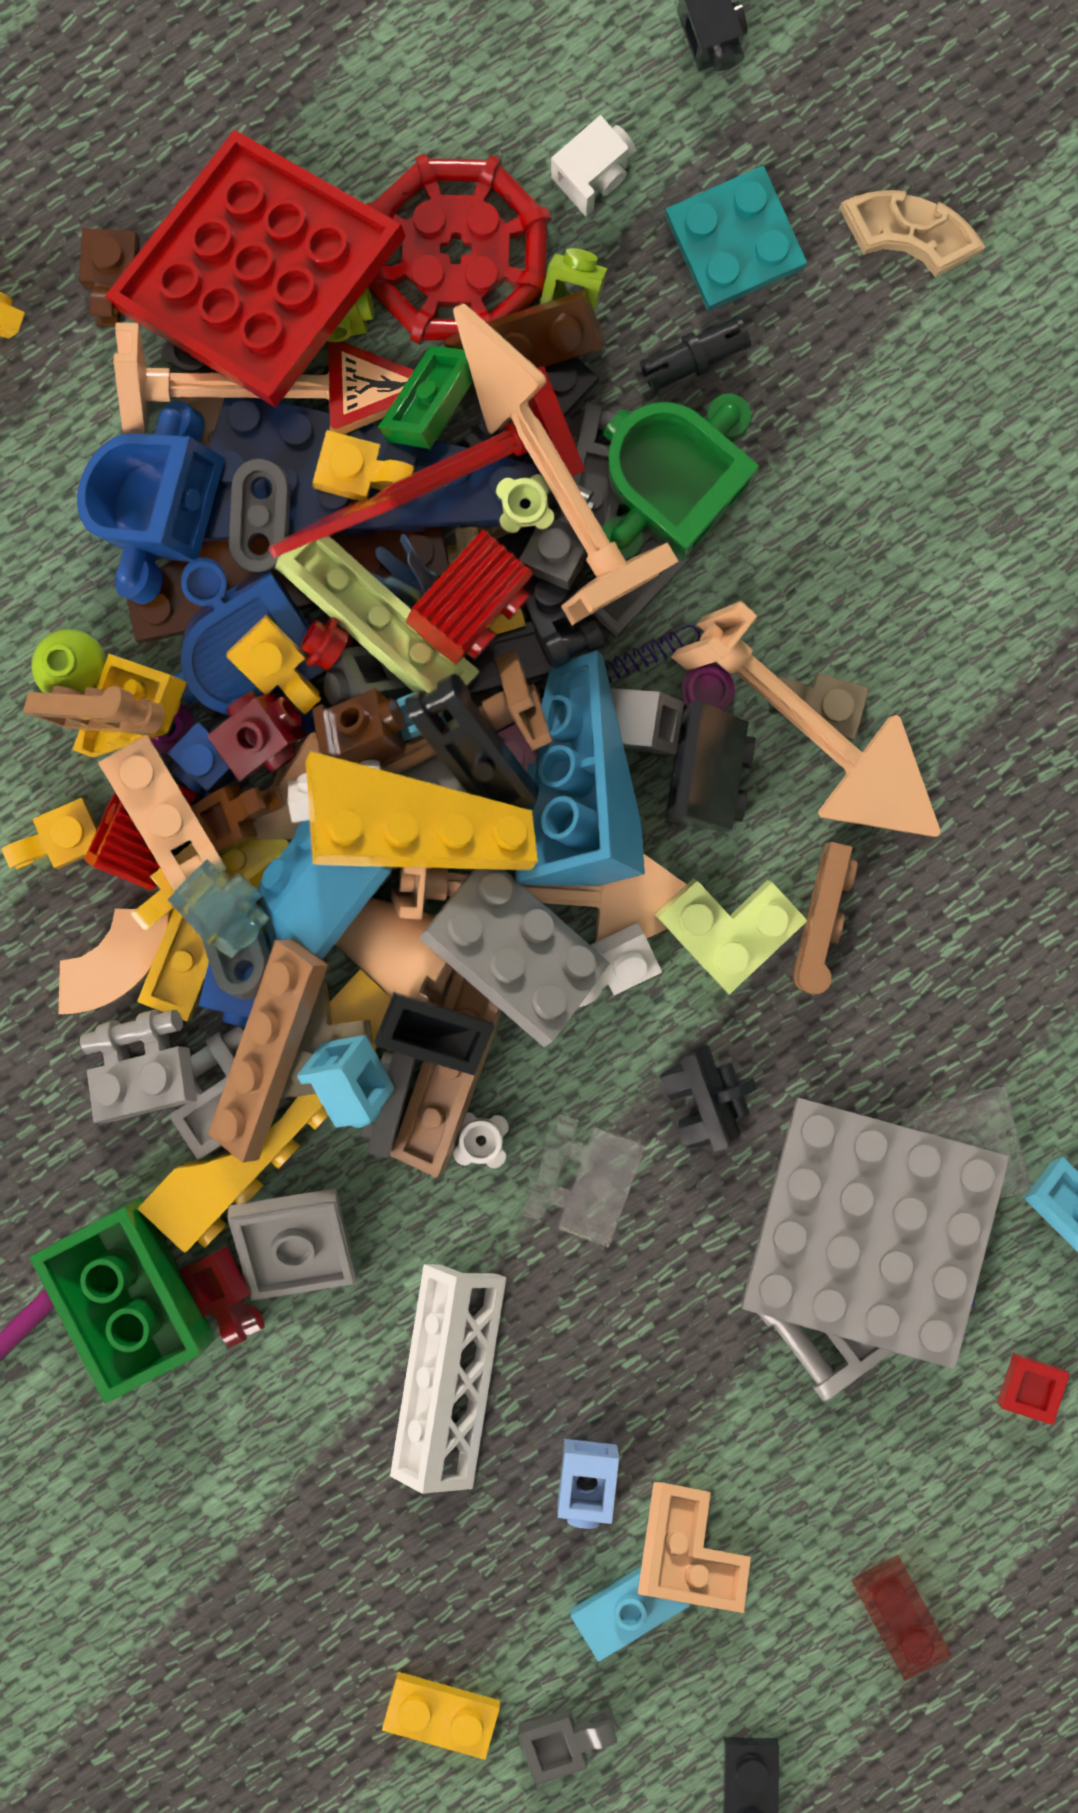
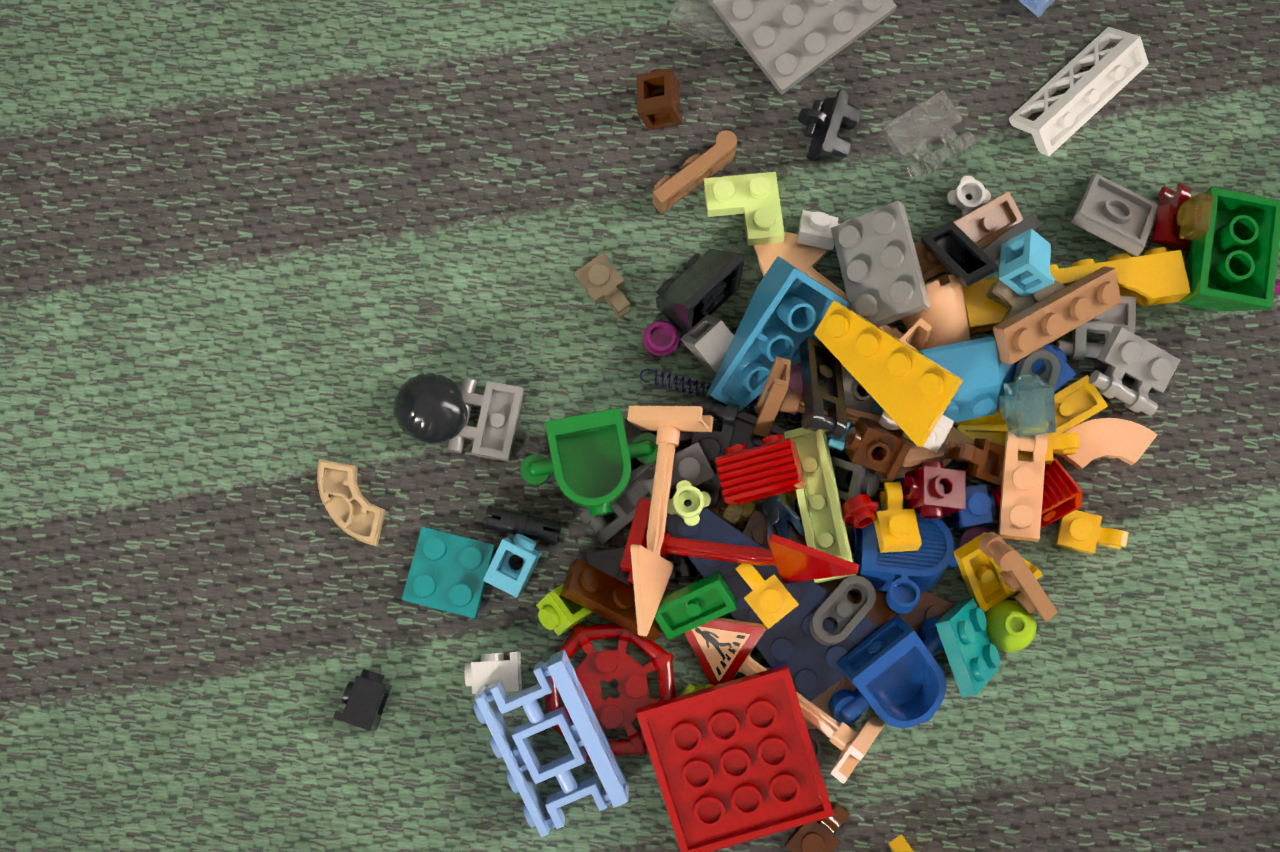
camera: 140 degrees left, 10 degrees down
(93, 590) = (968, 646): none -> teal plate
(196, 1305) = (1195, 216): none -> clear yellow plate
(457, 167) = (581, 731): none -> light blue fence
(668, 294) = (502, 572): none -> medium azure brick
(818, 445) = (496, 421): none -> light grey plate
(879, 784) = (607, 219): light nougat piece -> none
(905, 395) = (430, 408): none -> black piece
(954, 975) = (659, 99): none -> reddish brown brick

